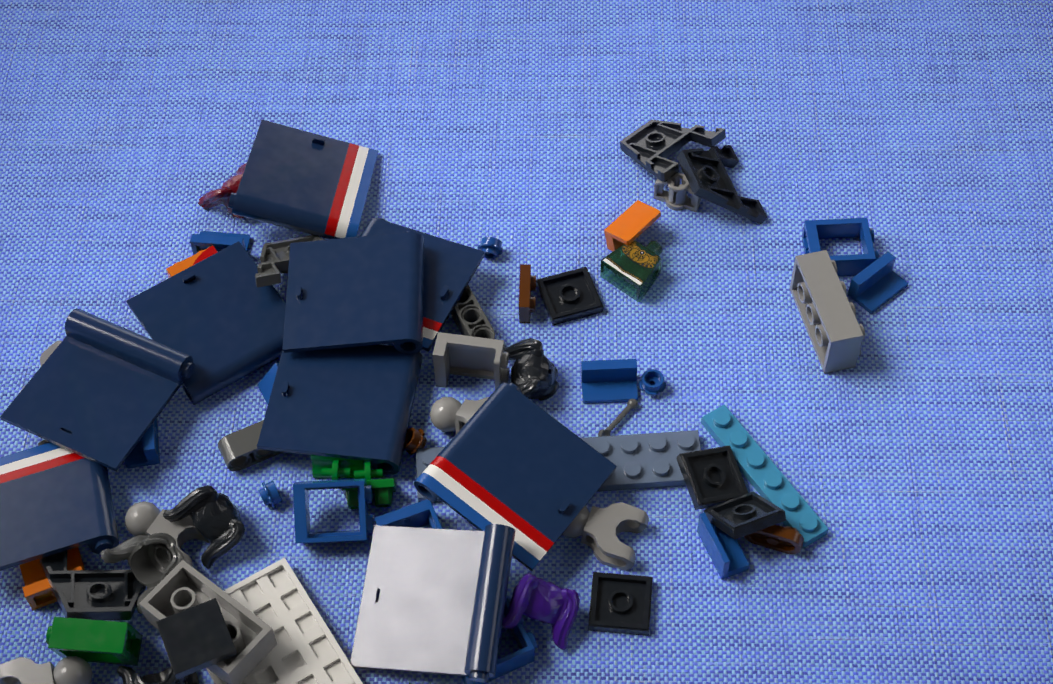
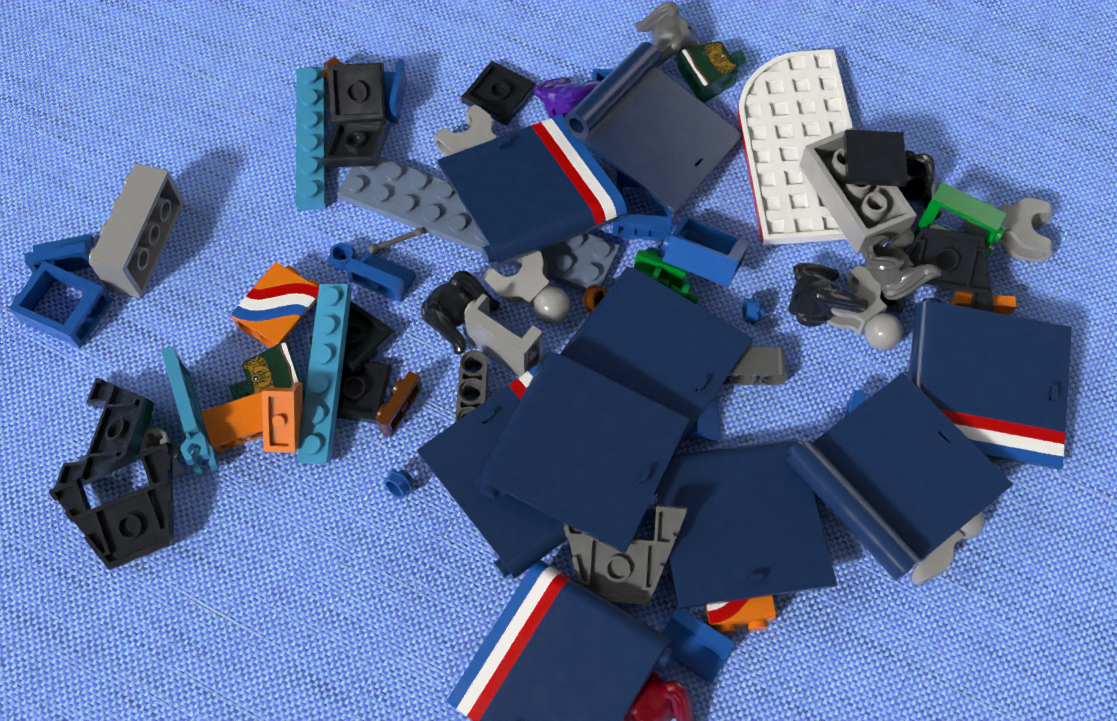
camera: 155 degrees left, 10 degrees up
(592, 234) = (282, 418): none -> orange panel
(596, 285) = (324, 374): none -> dark azure plate
(597, 325) = (364, 338): none -> black tile
(669, 317) = (275, 305): none -> panel
(678, 215) = (189, 412): none -> dark azure tile

